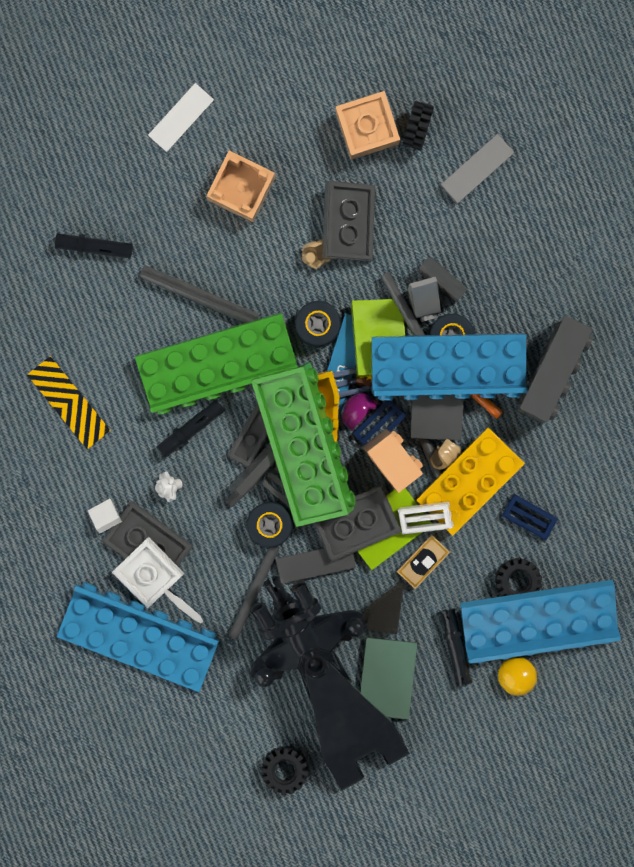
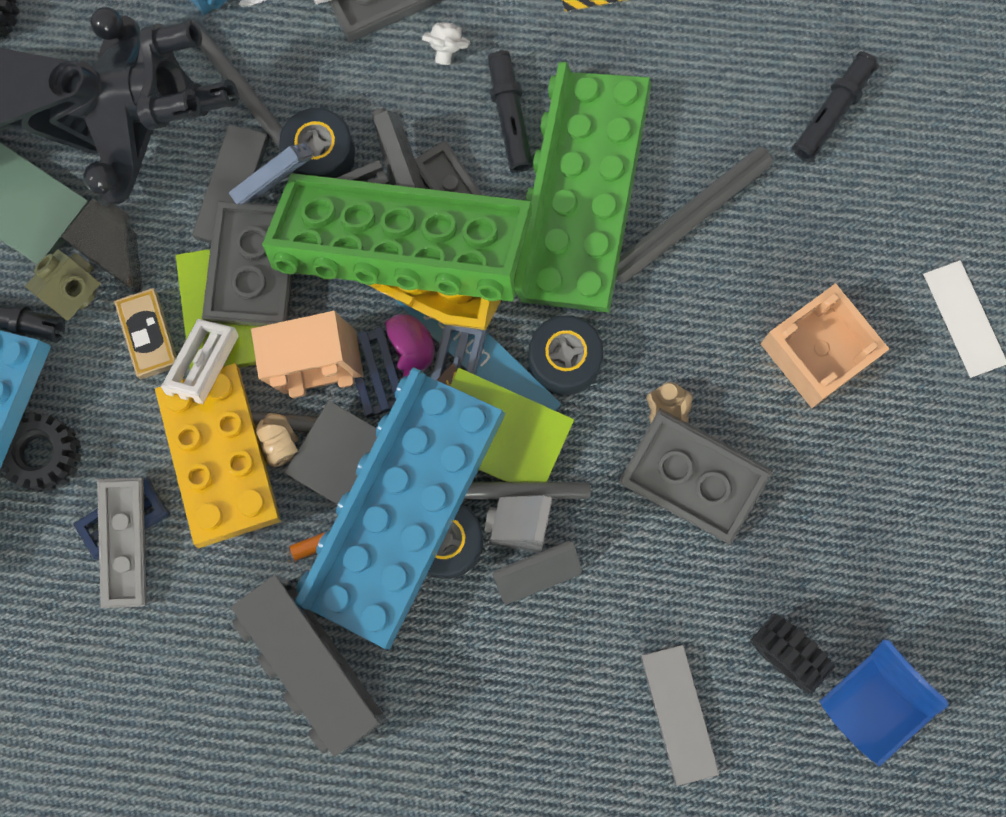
camera: 125 degrees right, 10 degrees down
(302, 535) = (271, 173): none -> sand blue tile
(367, 125) = (829, 576): light nougat container -> none
(421, 68) = (882, 703): none -> blue piece
(421, 619) = (64, 283): none -> olive brick
(542, 507) = (121, 542): none -> light grey tile

